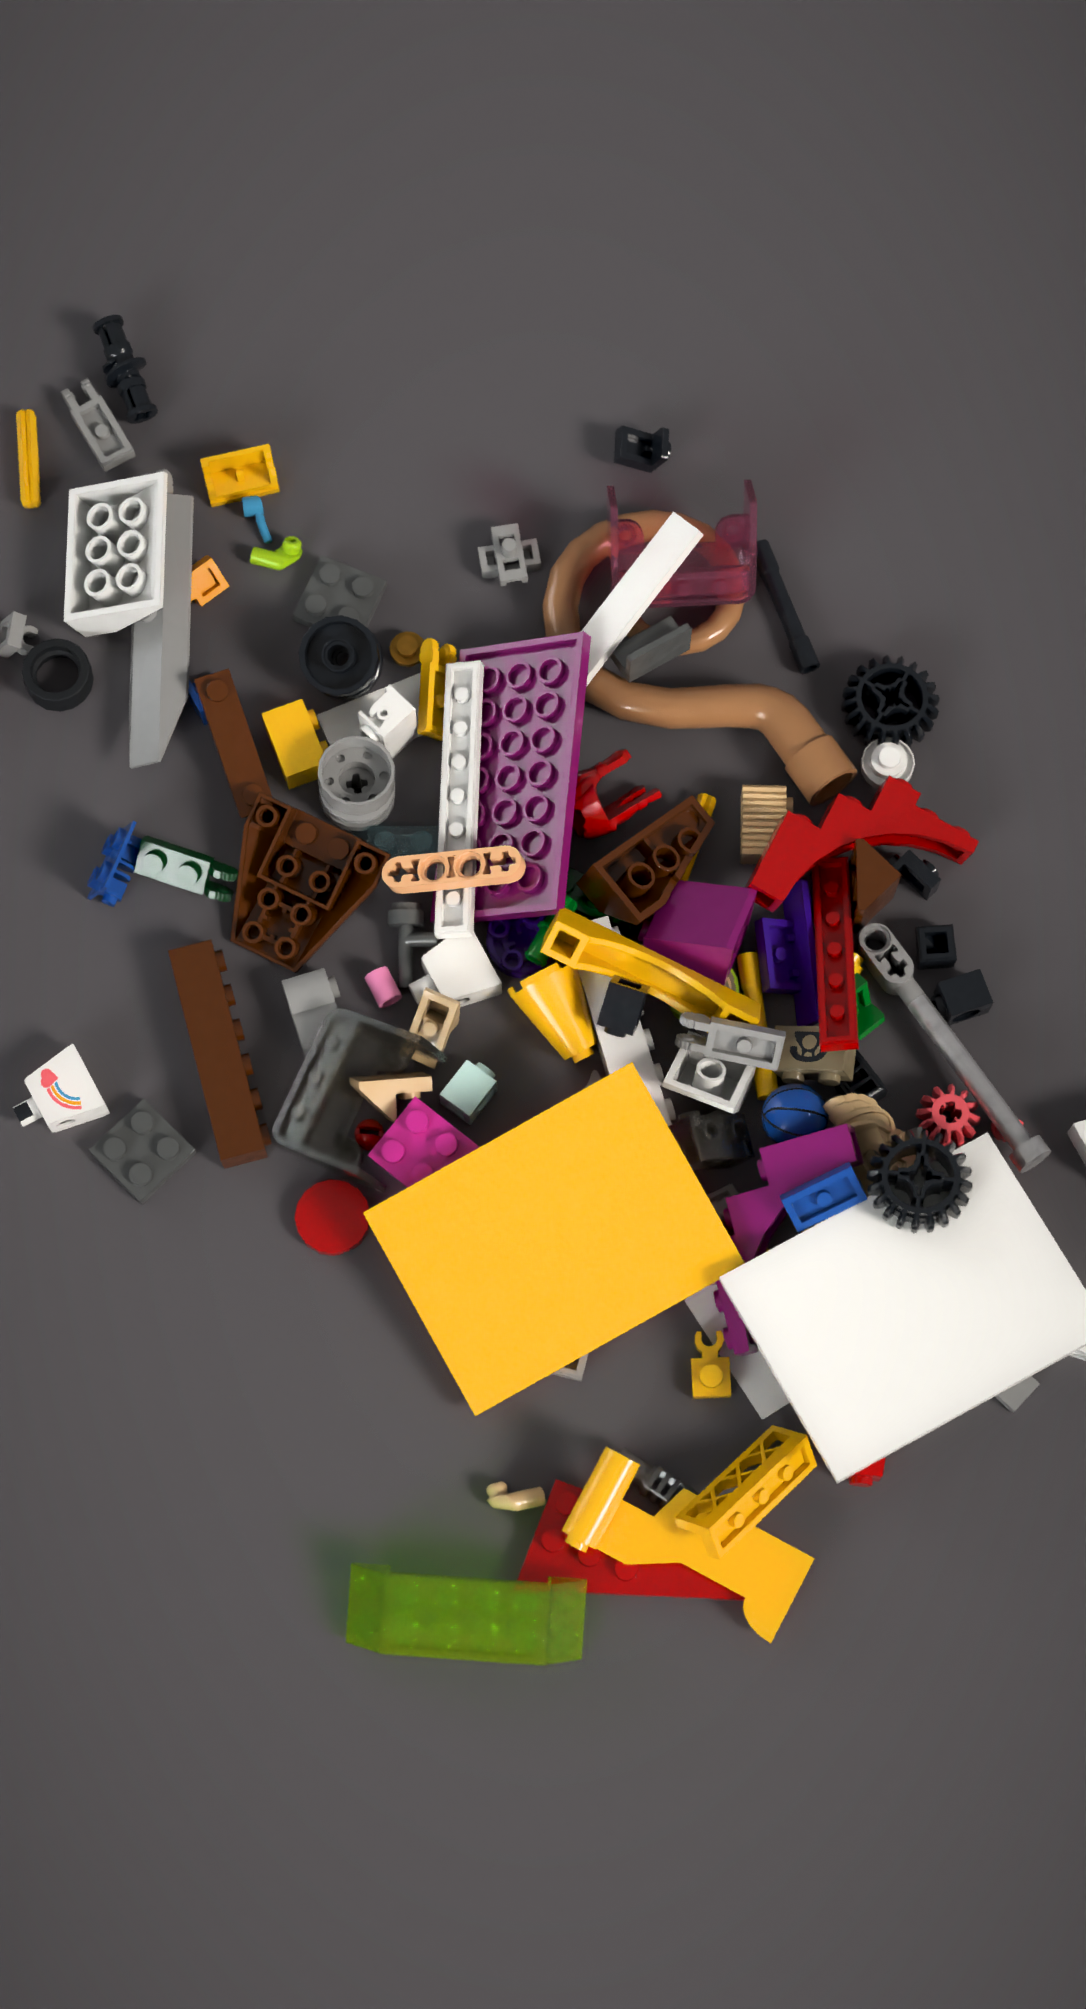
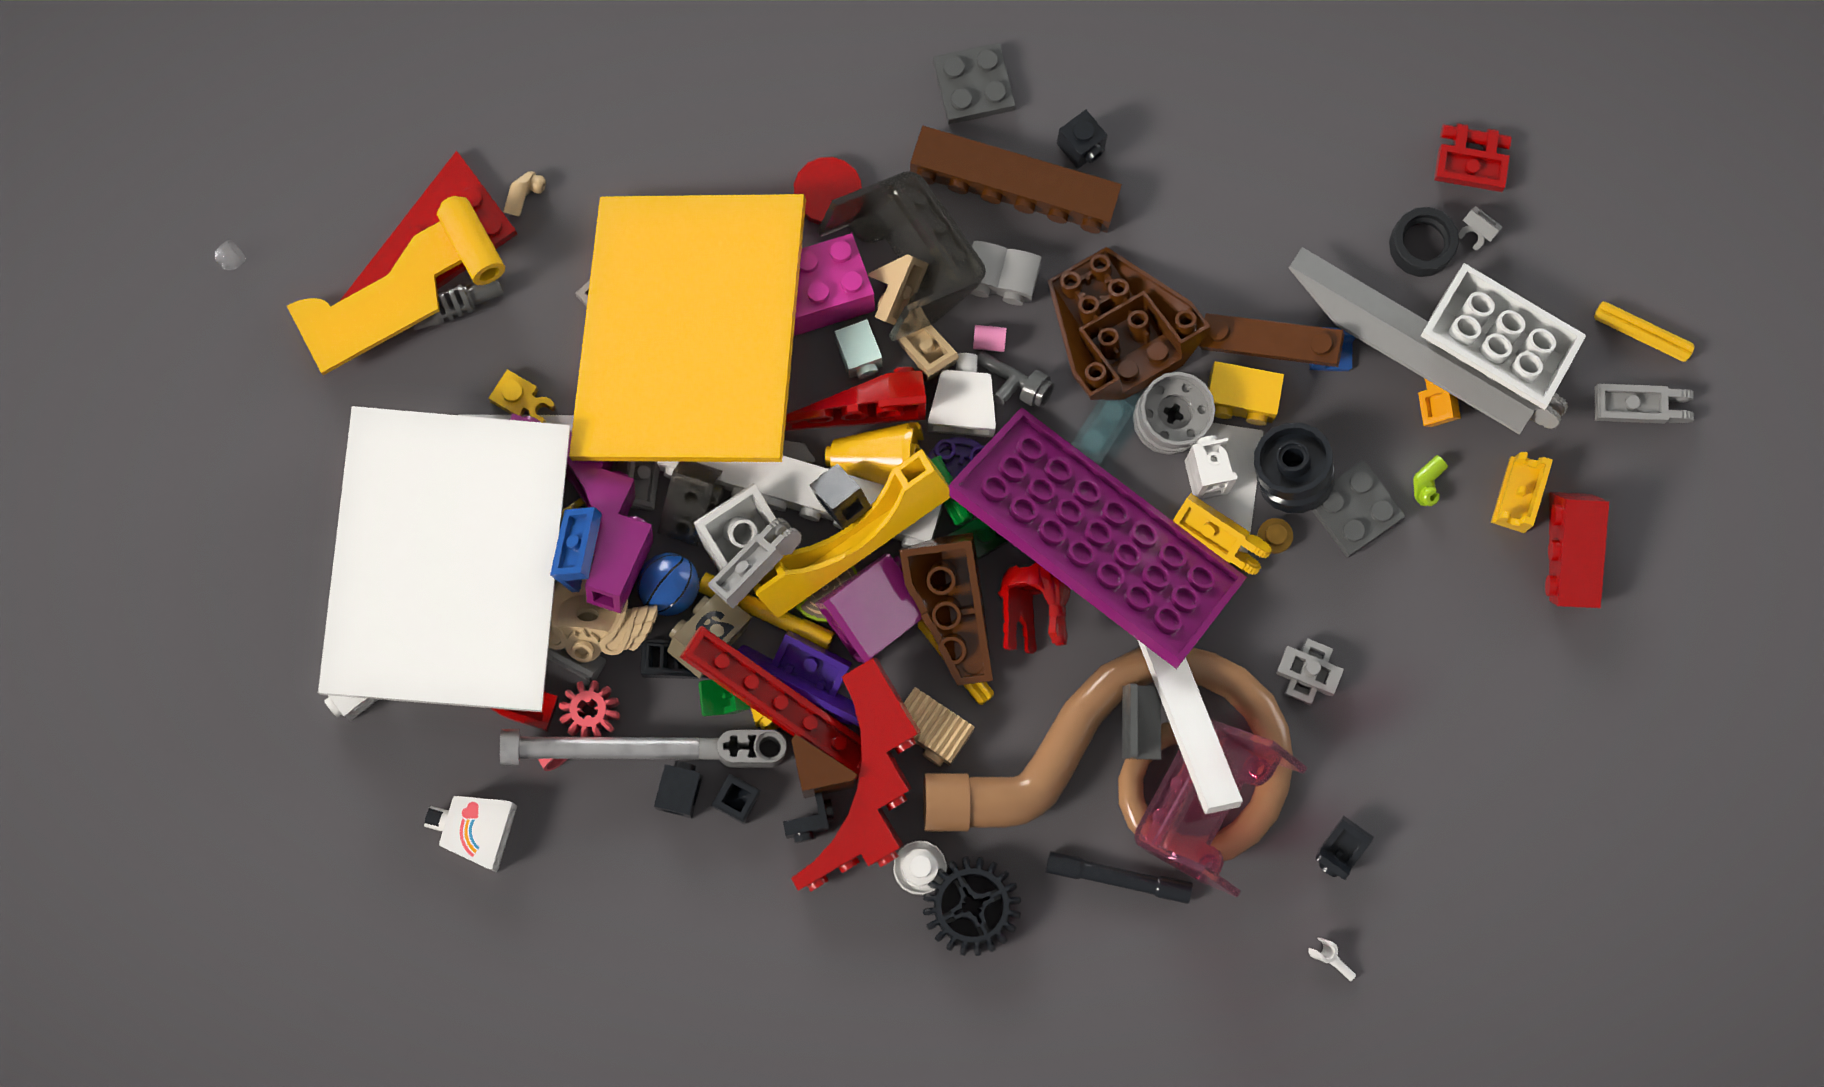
camera: 120 degrees right, 5 degrees up
(61, 1093) = (1057, 47): white torso -> none
(120, 853) = (1218, 174): blue hinge -> none
(123, 369) = (1683, 453): black piece -> none
(142, 1015) = (1082, 139): none -> black brick
(184, 868) = (1187, 244): hinge -> none
(253, 507) = (1484, 490): dark azure hand -> none
(262, 405) = (1576, 549): none -> red wedge
(368, 1141) = (881, 260): red hinge -> none
(453, 875) = (1044, 436): light nougat beam -> none
(459, 791) = (1108, 486): white tile -> none
(465, 1616) = (450, 96): clear neon green slope -> none
(496, 1036) = (880, 400): none -> red wedge
(735, 414) = (1329, 955): none -> white hand
(755, 1493) = (395, 354): yellow fence -> none
(757, 1737) = (229, 255): none -> clear hinge
(934, 1180) = (523, 633): black gear -> none

